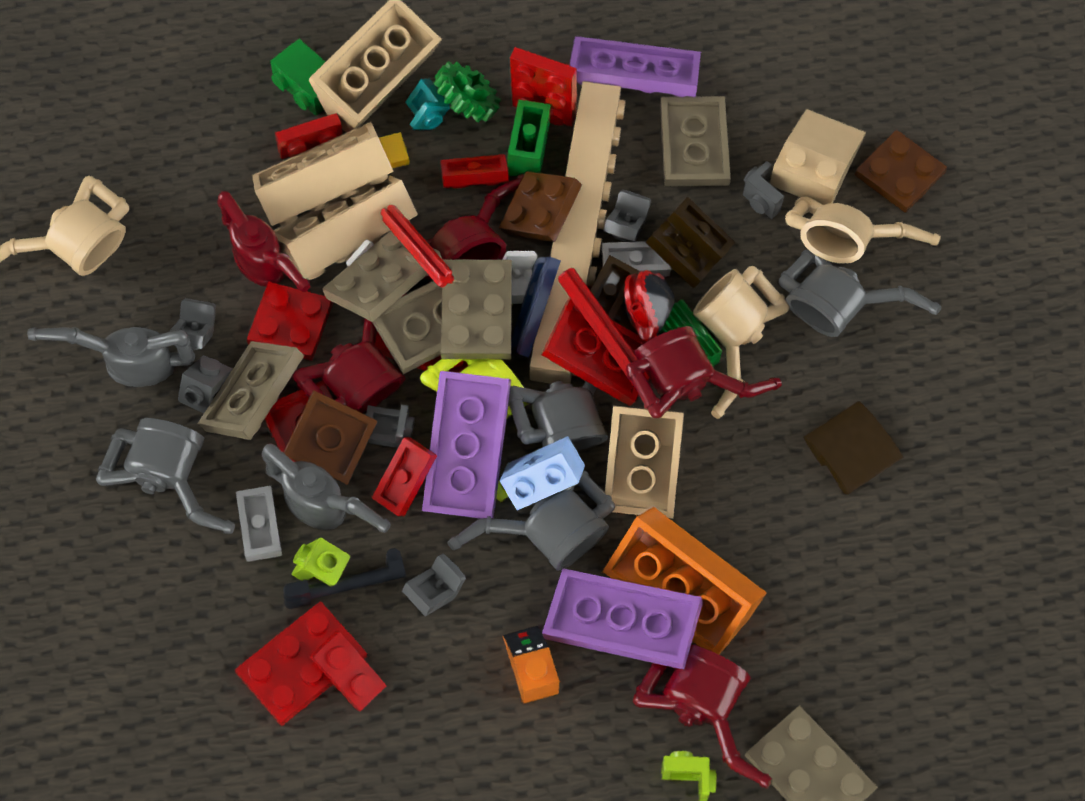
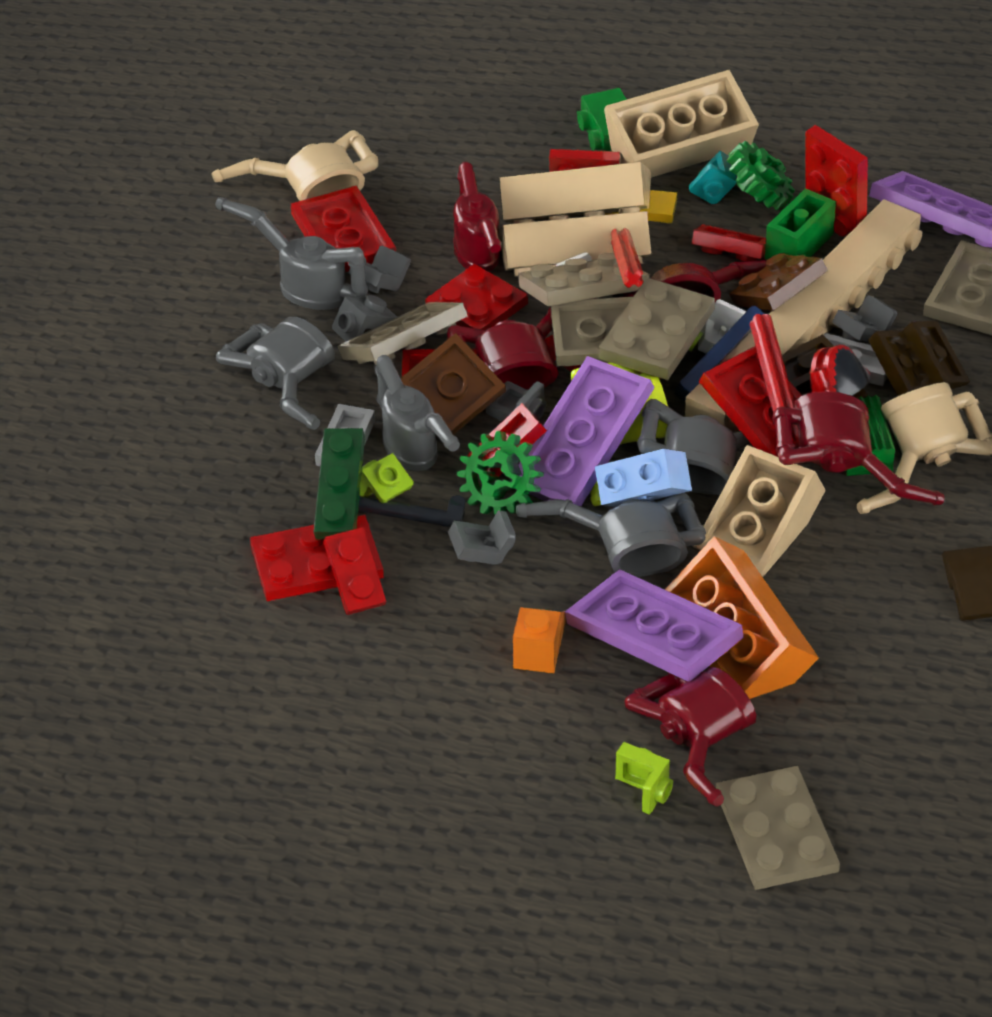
camera: 30 degrees right, 20 degrees down
(132, 287) = (343, 221): none -> red plate
(293, 591) = (339, 481): none -> dark green plate
(435, 517) = (507, 460): none -> green gear

